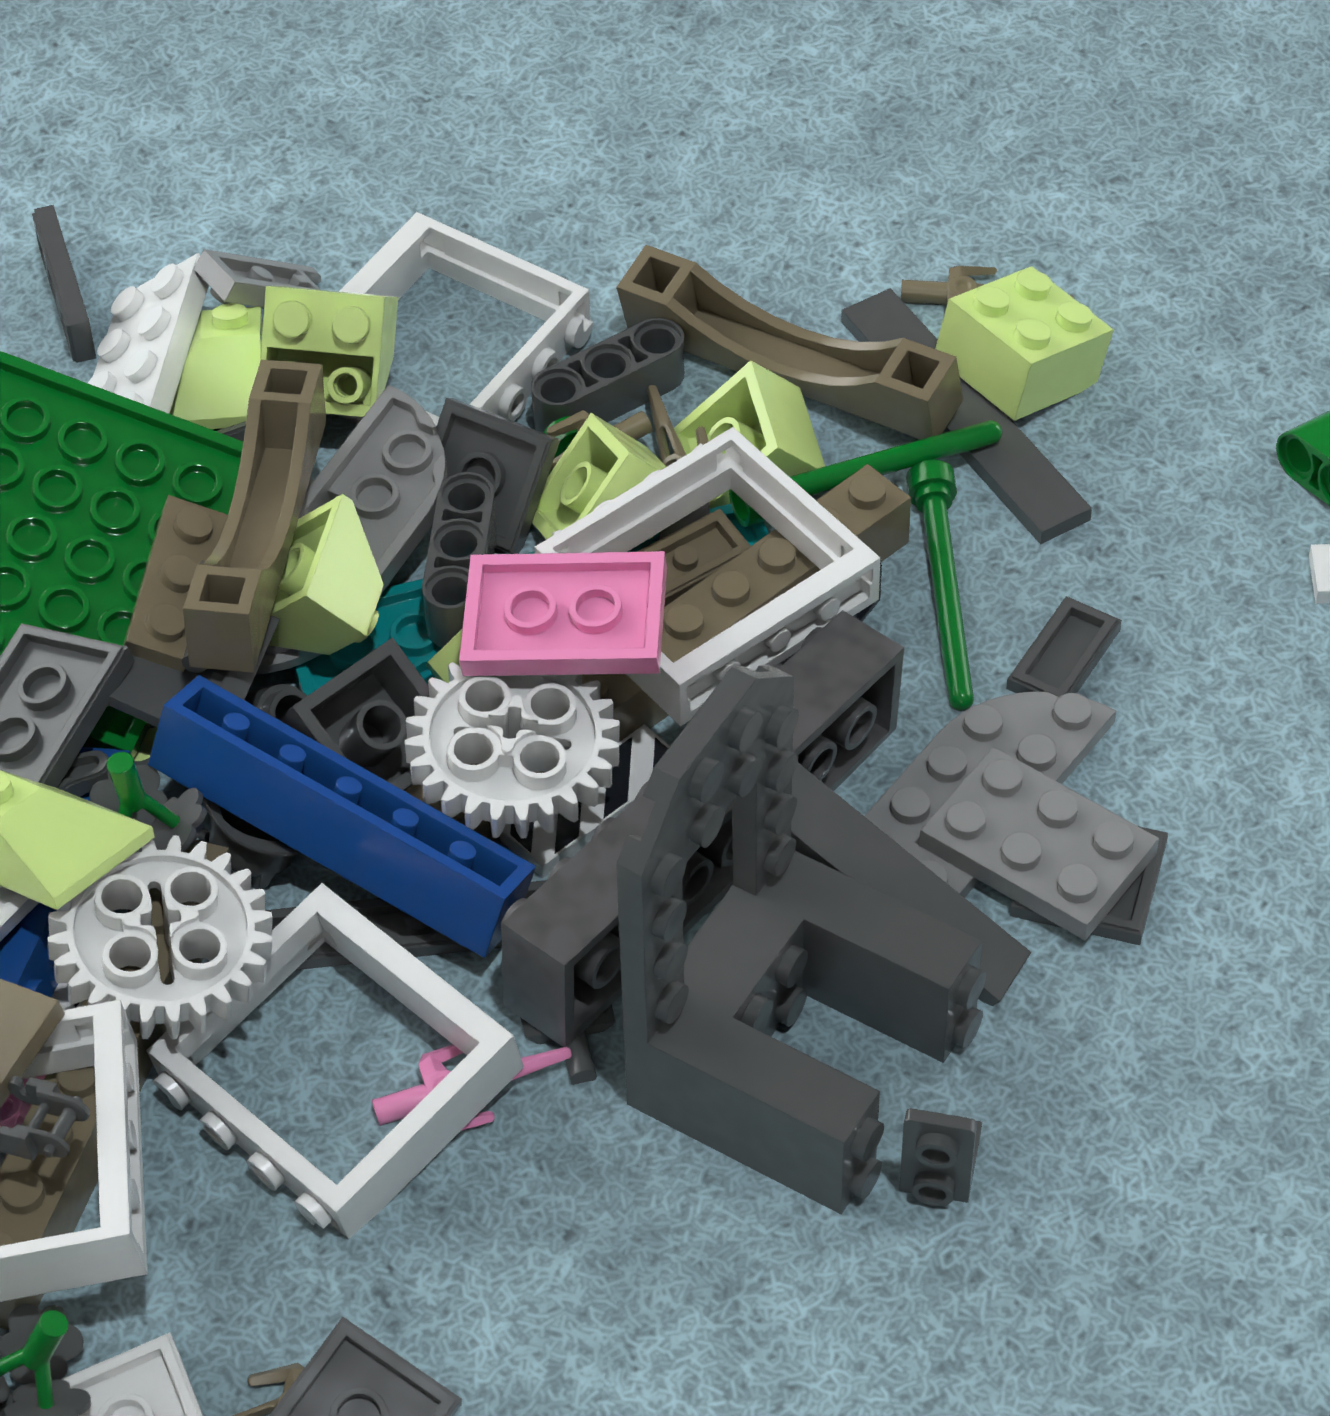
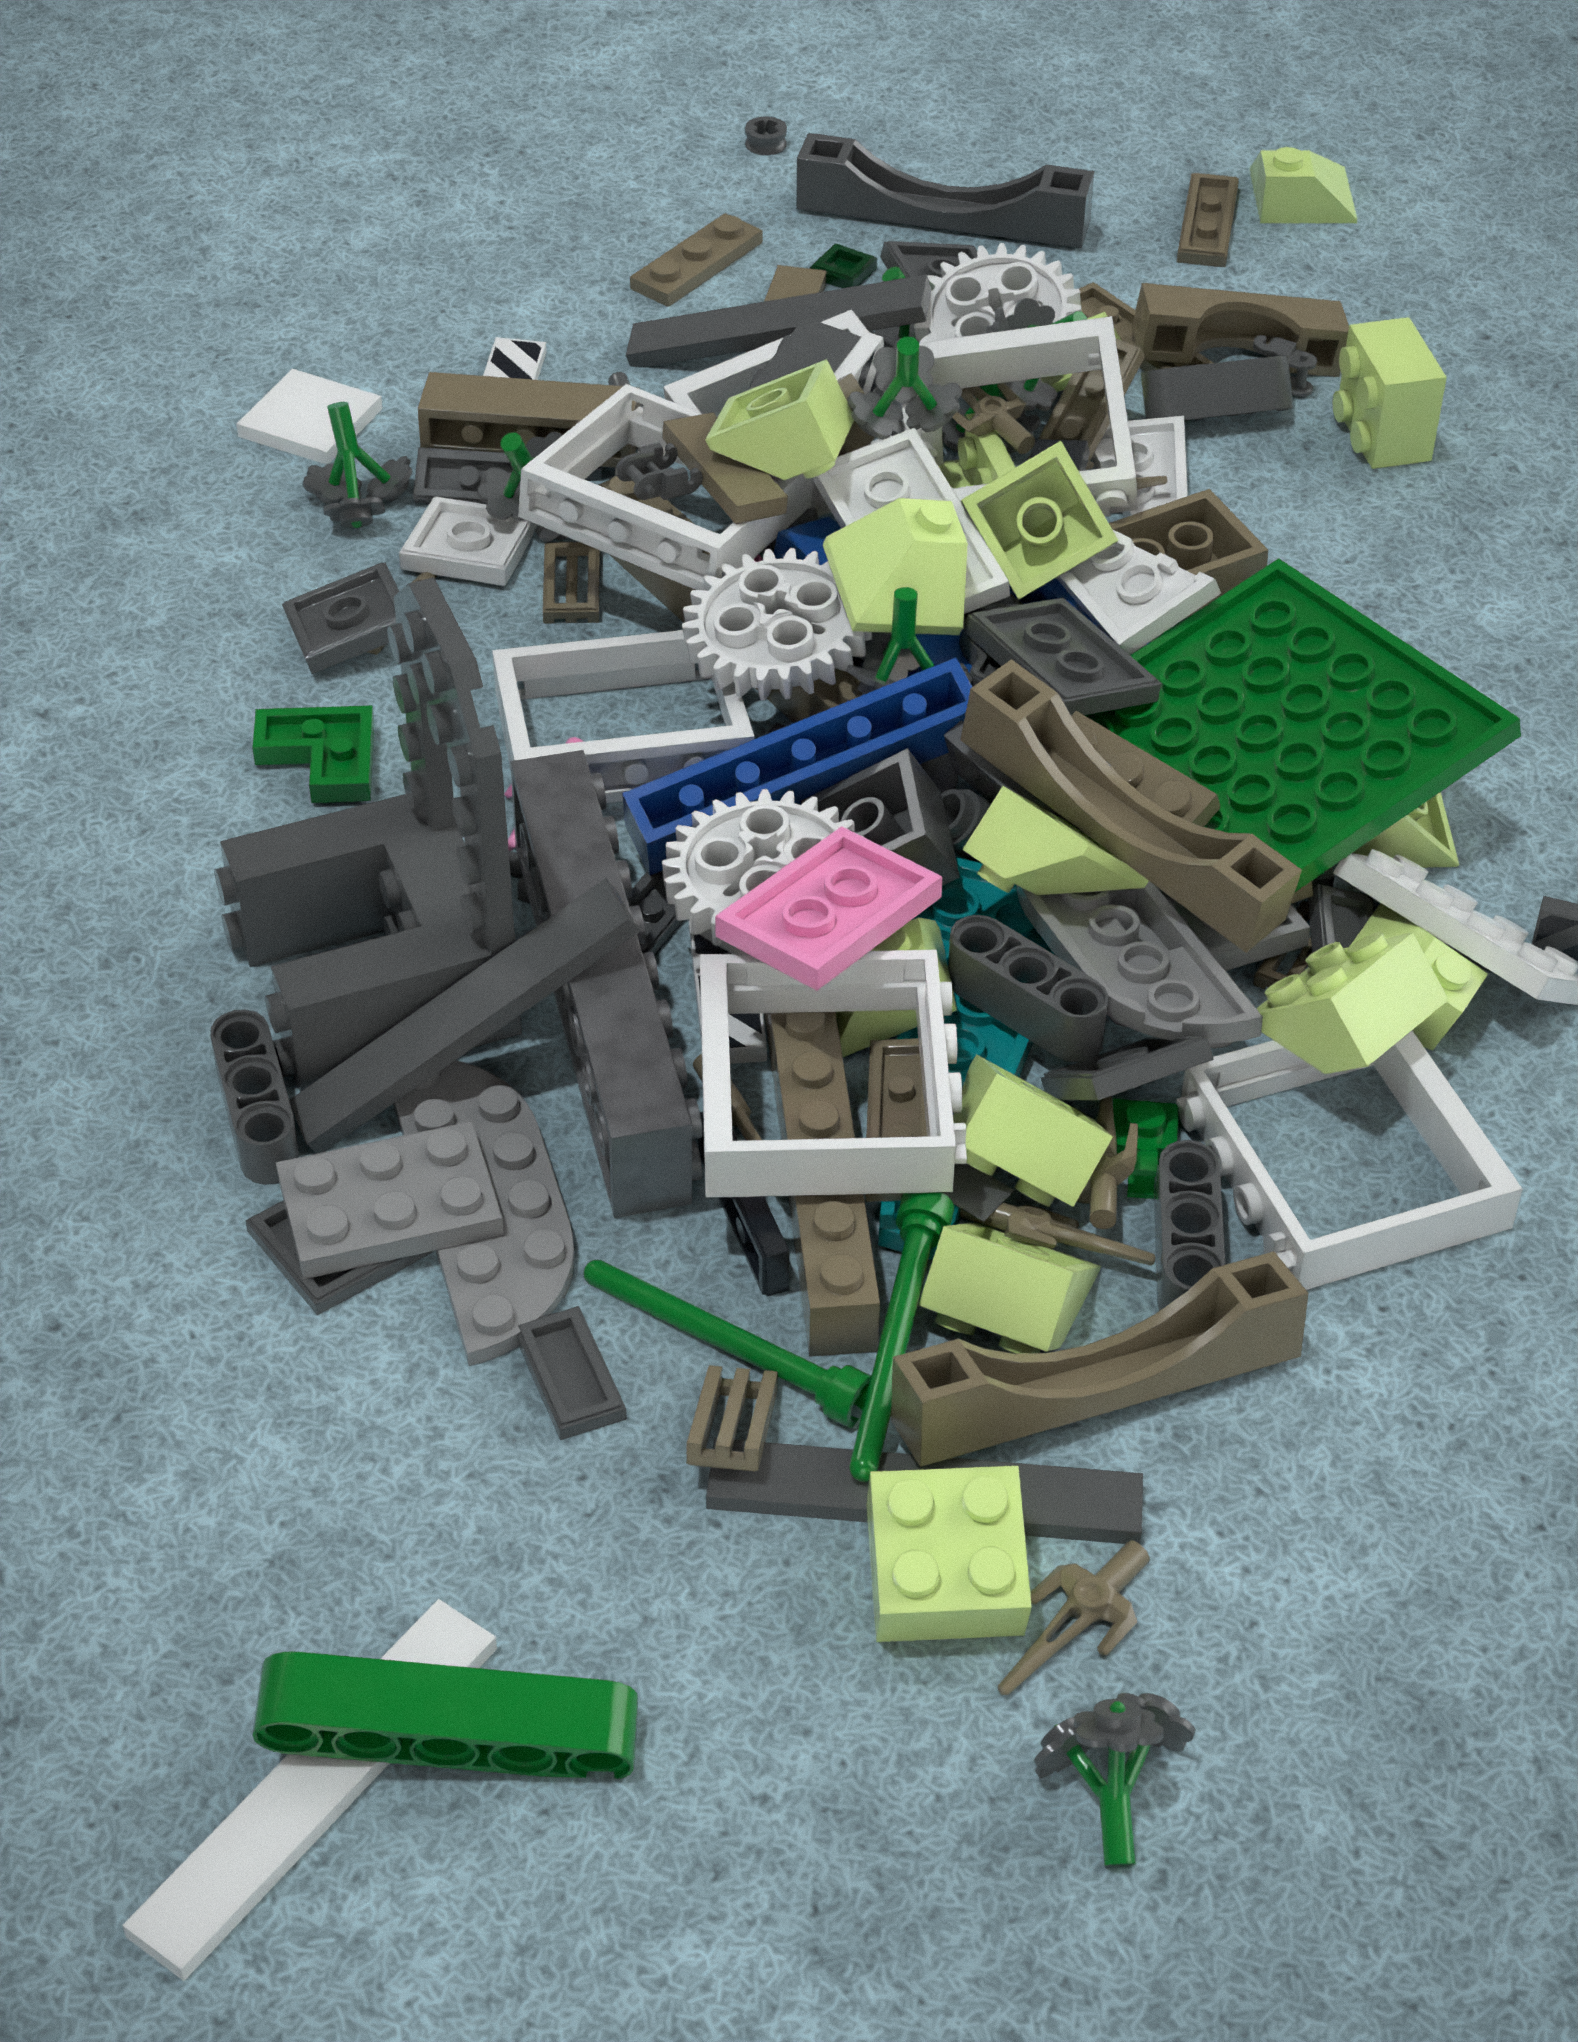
camera: 125 degrees right, 5 degrees down
(139, 1305) = (571, 609): none -> dark tan tile
(245, 278) = (1500, 1040): light grey hinge -> none
(549, 1298) = (330, 739): none -> green plate
(938, 1156) = (190, 960): dark grey bracket -> none
(1013, 517) = (737, 1390): none -> dark tan tile
(1031, 986) = (253, 1094): none -> dark grey beam
(1083, 184) = (1123, 1725): none -> plant

